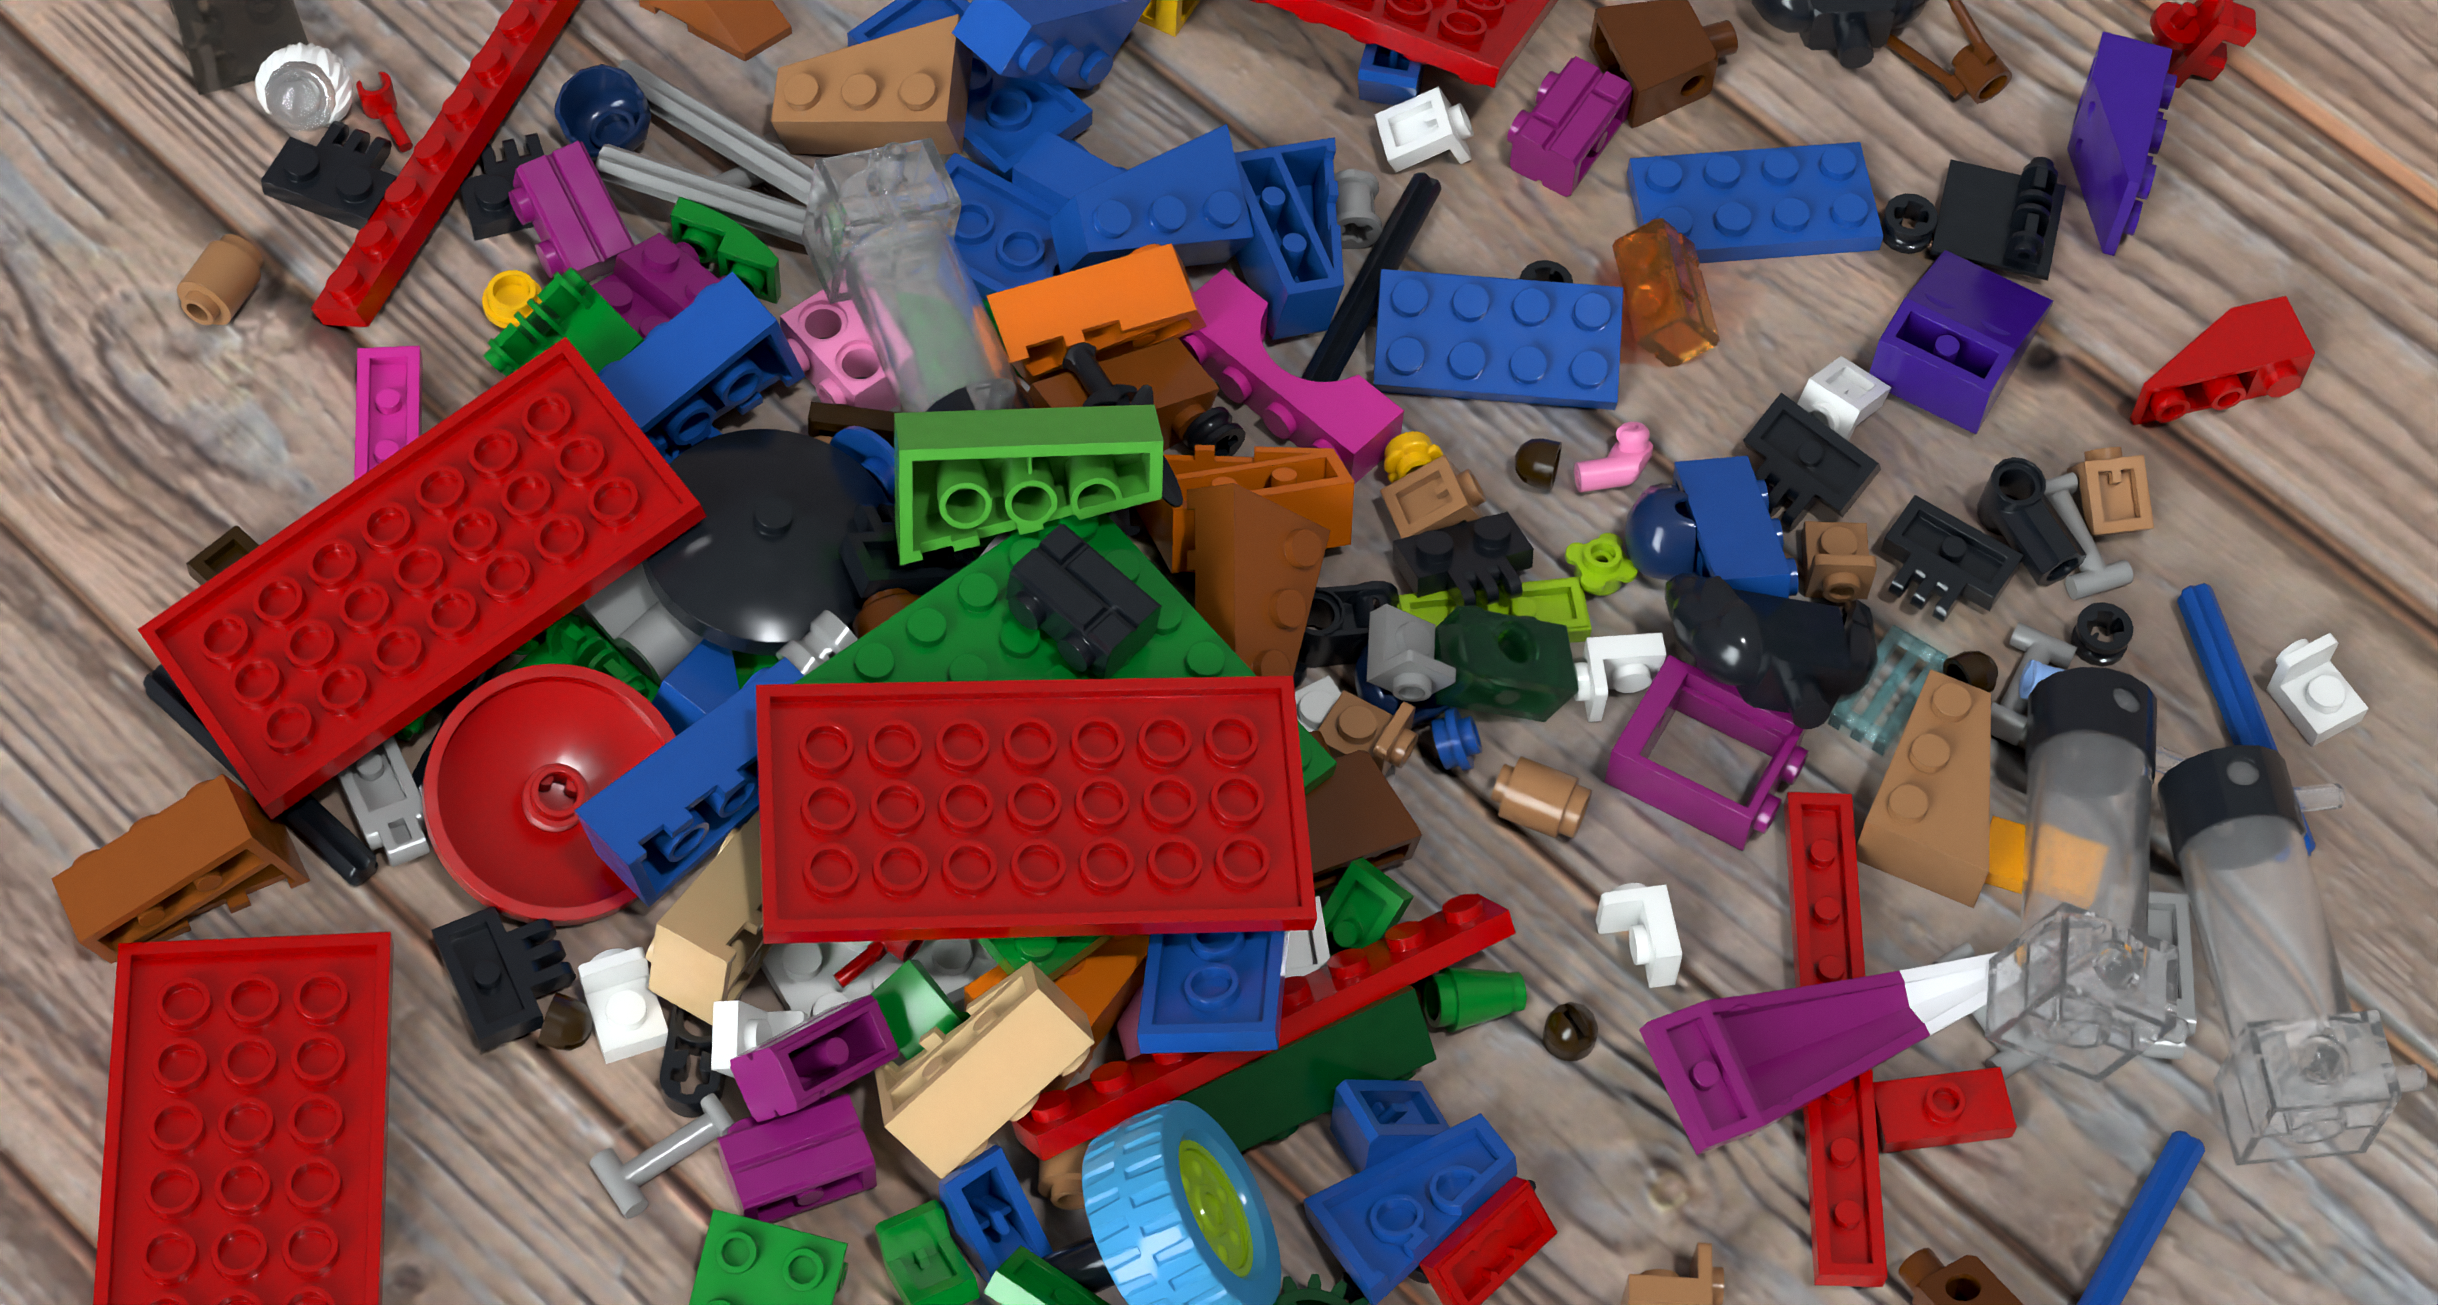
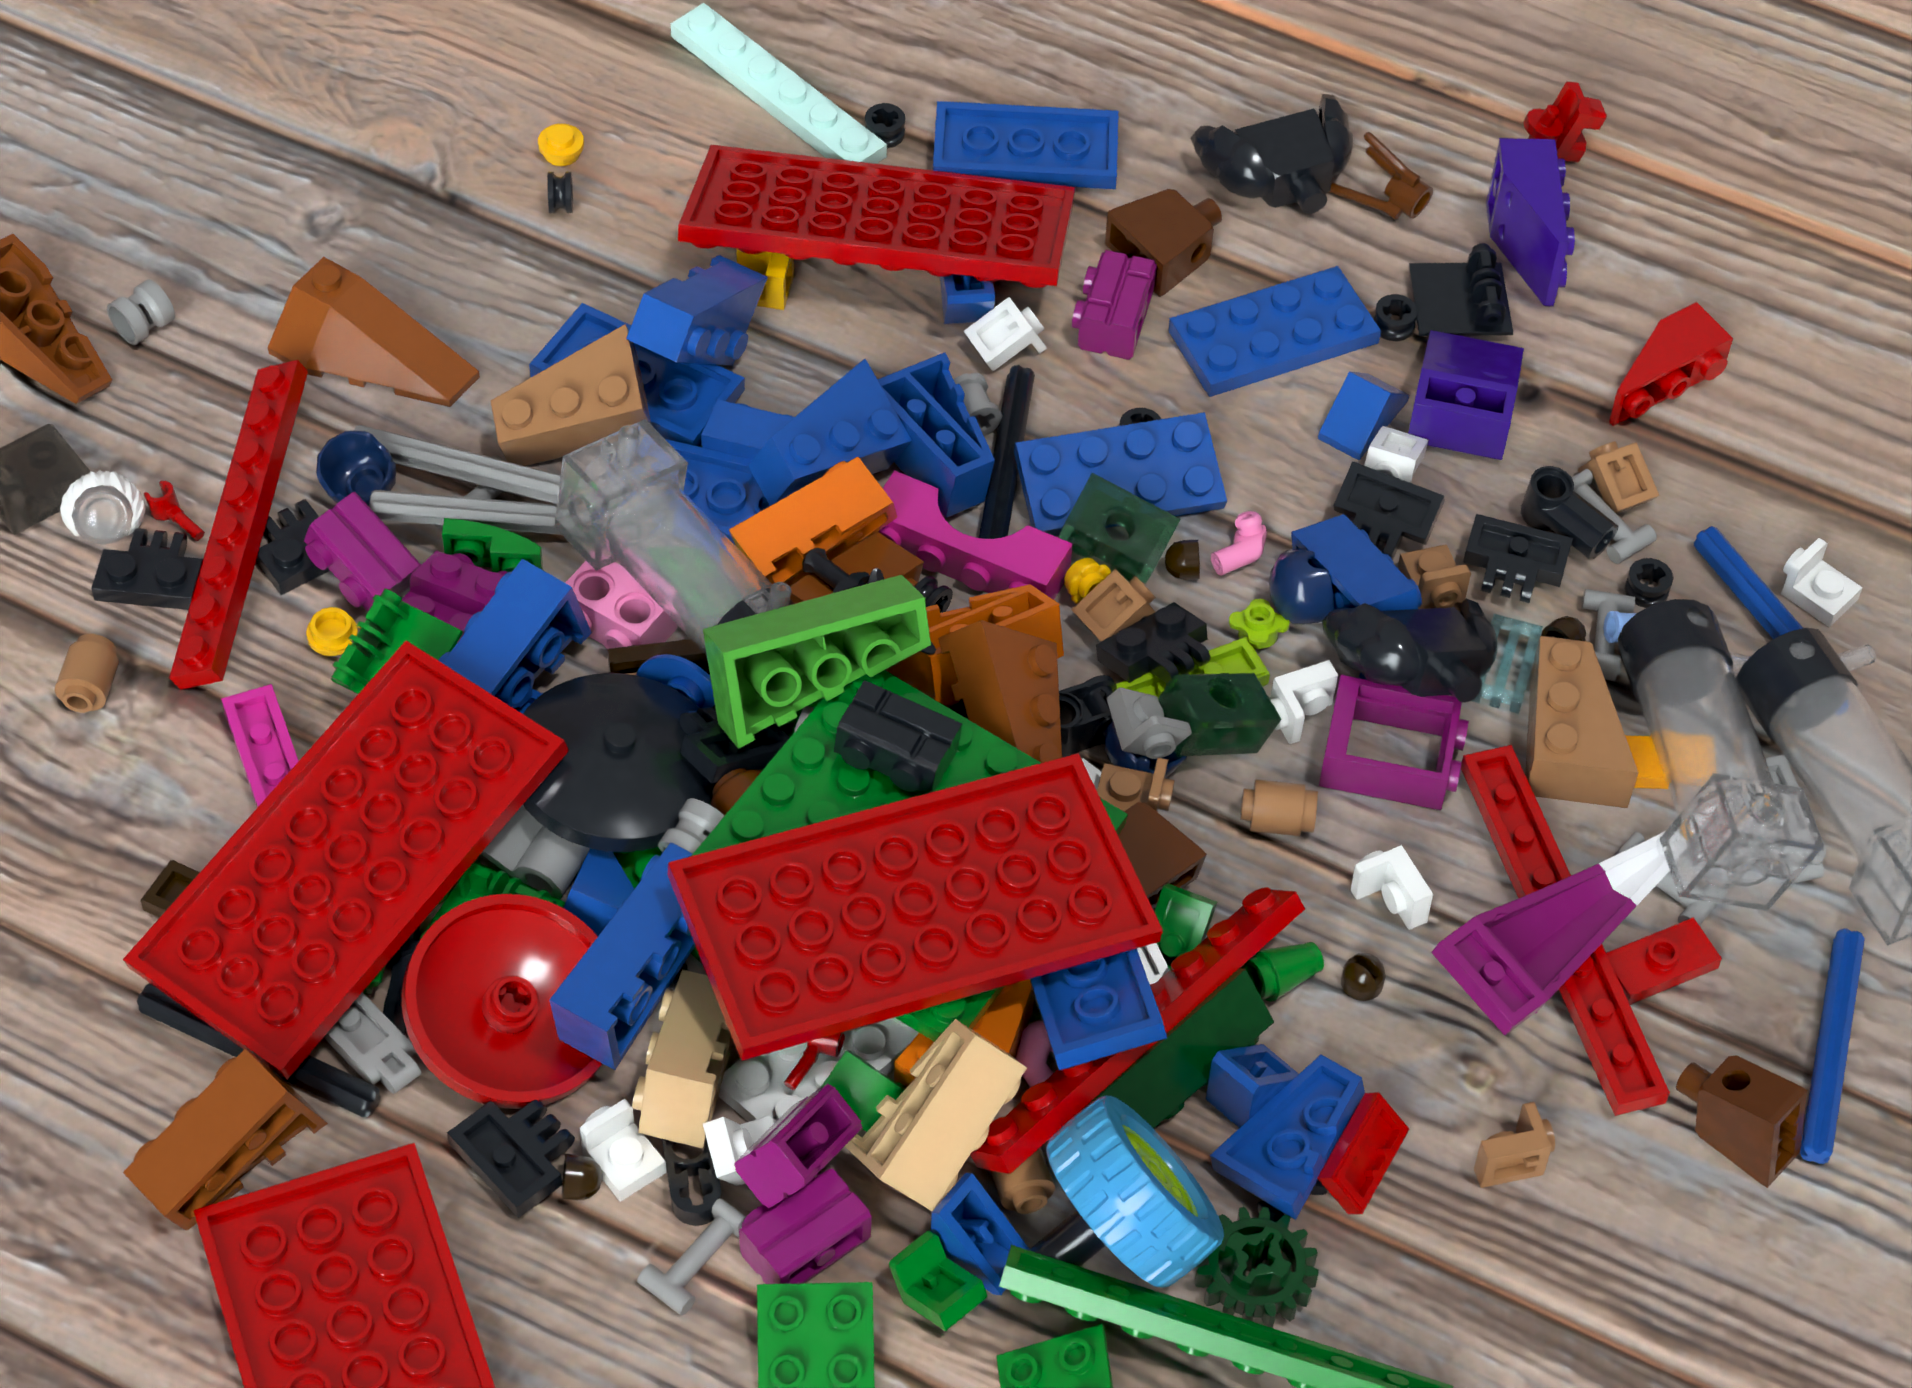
camera: 15 degrees left, 5 degrees down
(1455, 372) = (1107, 504): none -> clear green brick
(1456, 740) = (1199, 781): blue plate -> none
(1665, 293) = (1236, 410): clear orange brick -> none
(1821, 327) = (1360, 412): none -> blue slope

